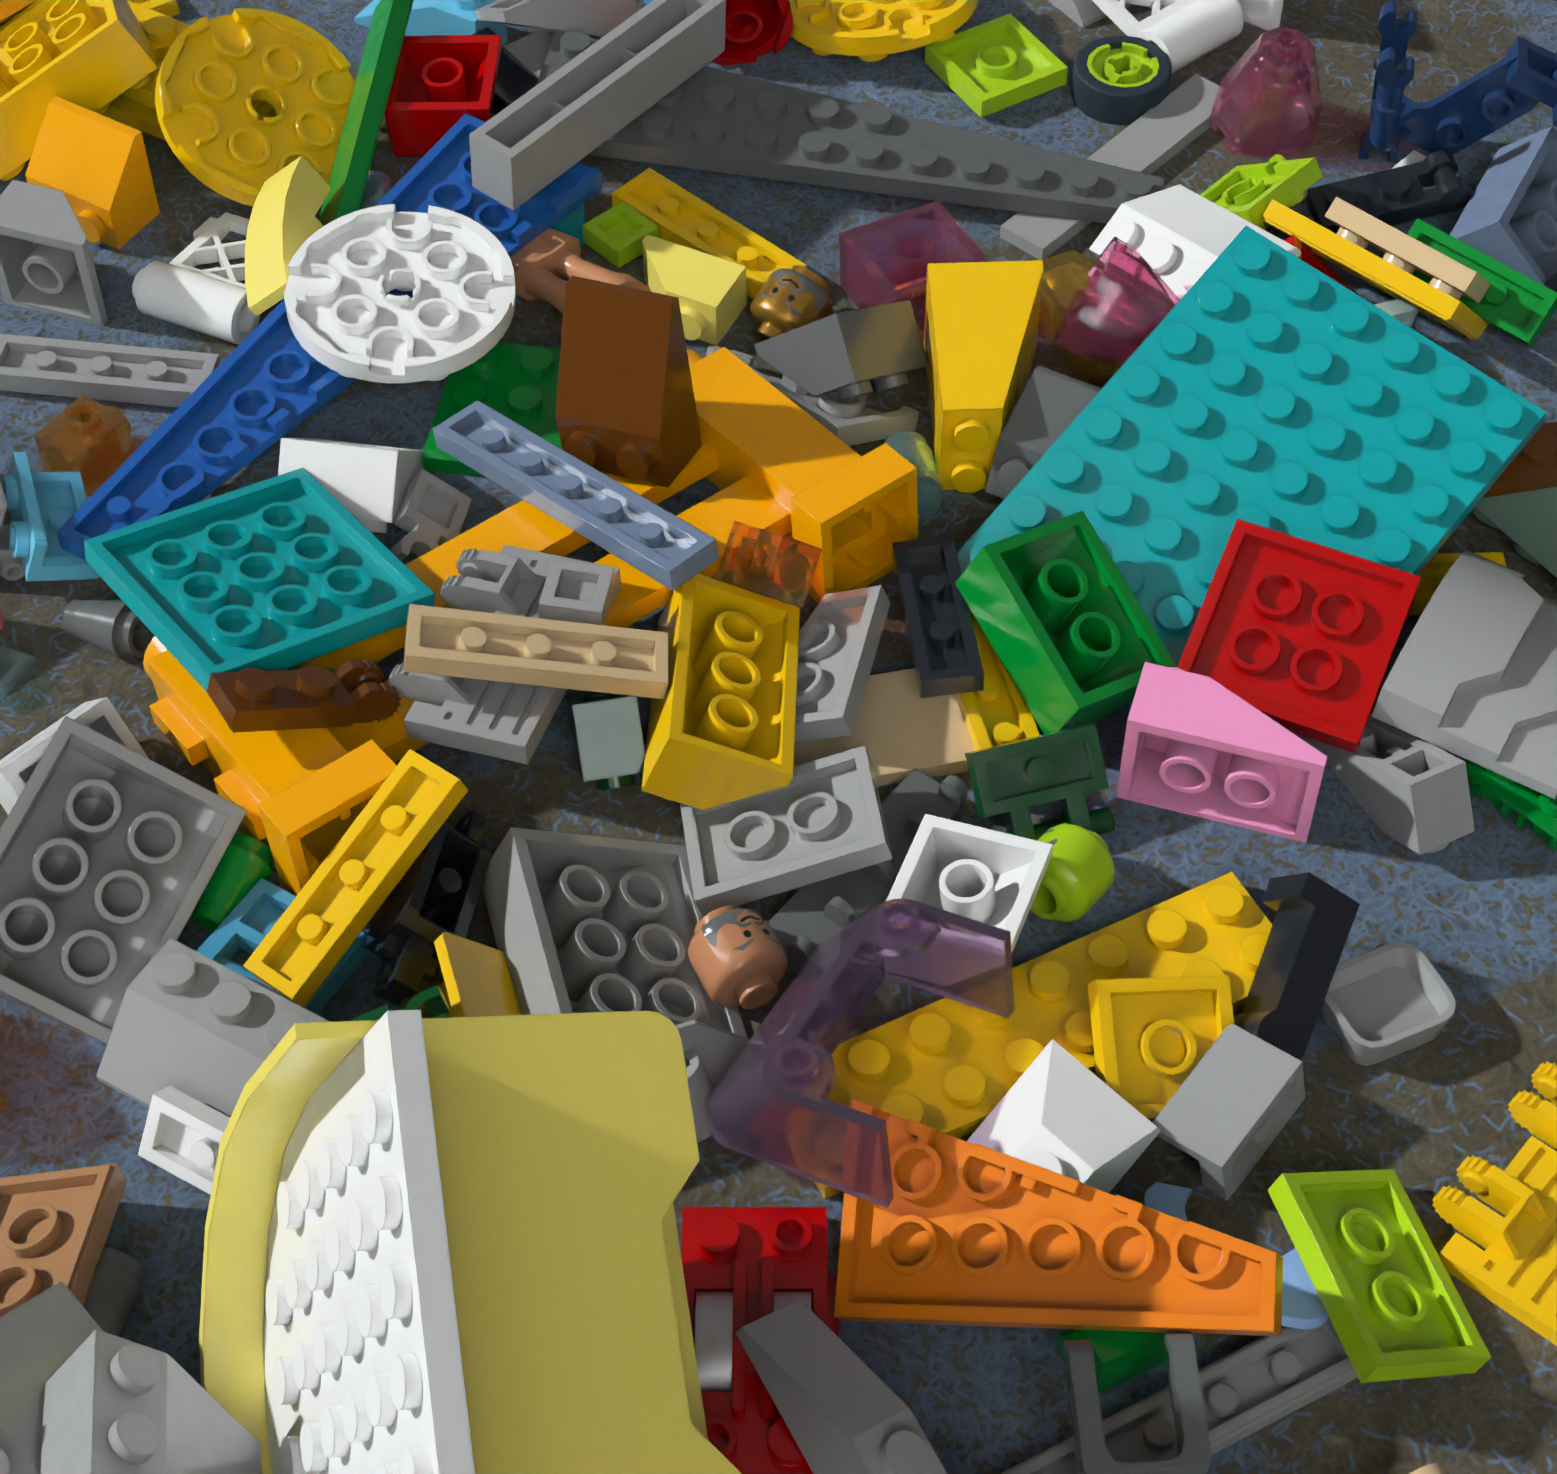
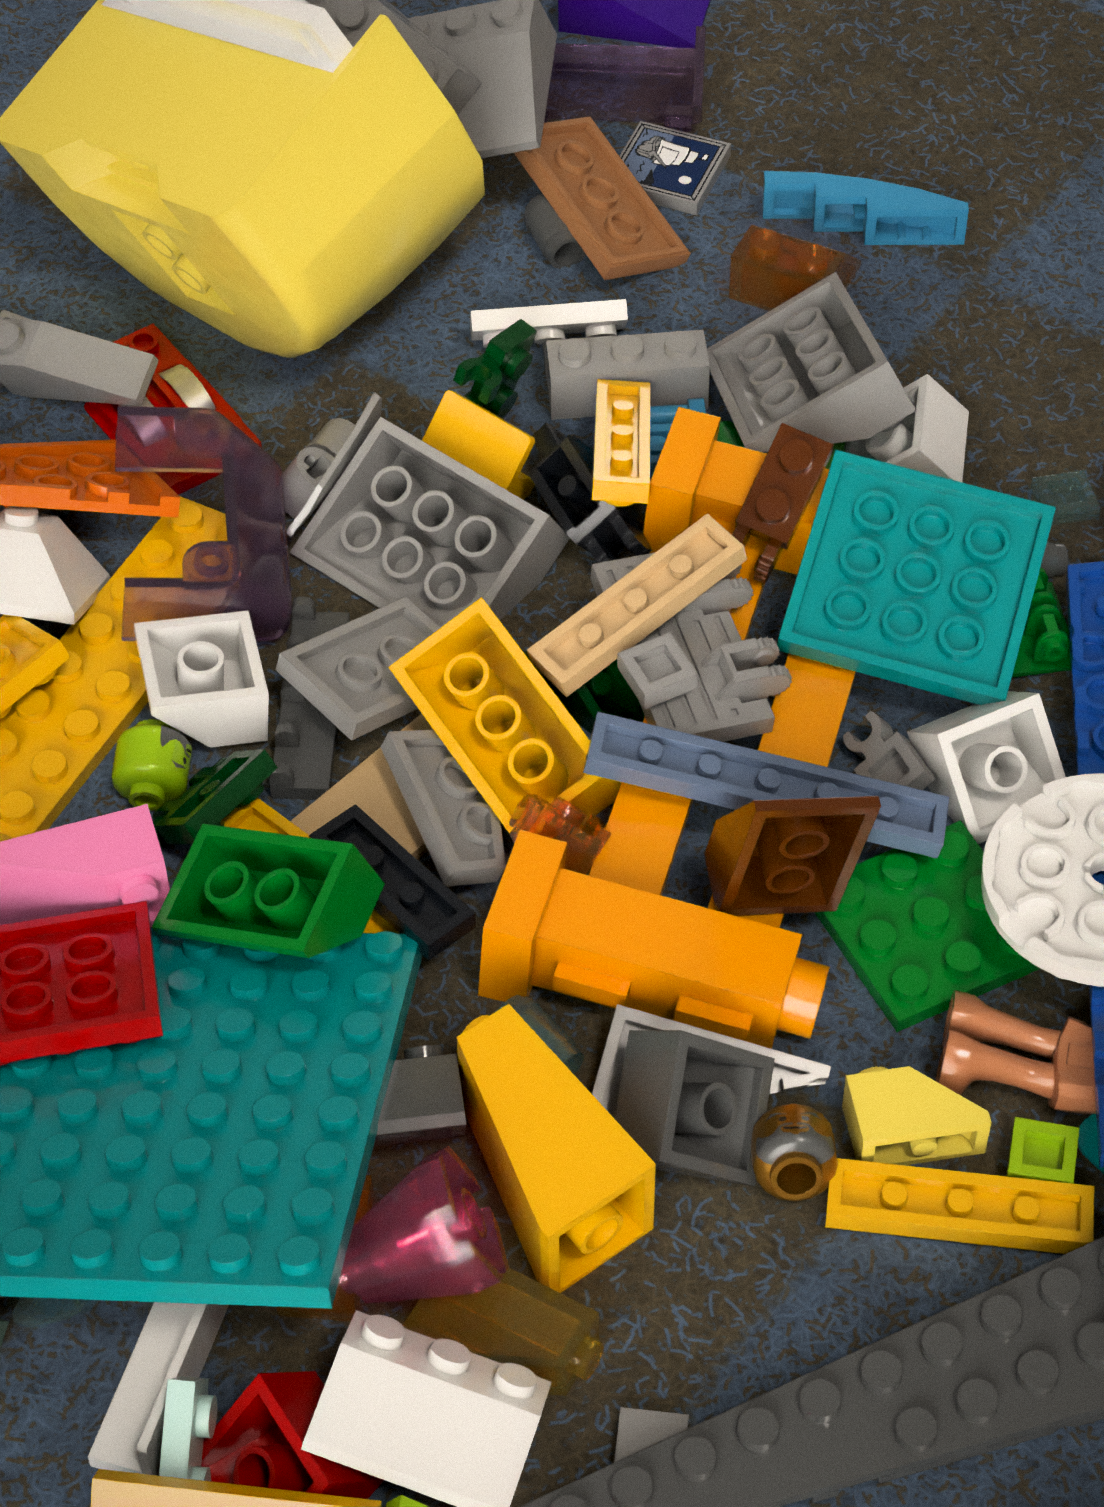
camera: 145 degrees right, 0 degrees up
(737, 957) = (343, 578): nougat head -> none
(890, 256) = (706, 1245): clear pink slope -> none

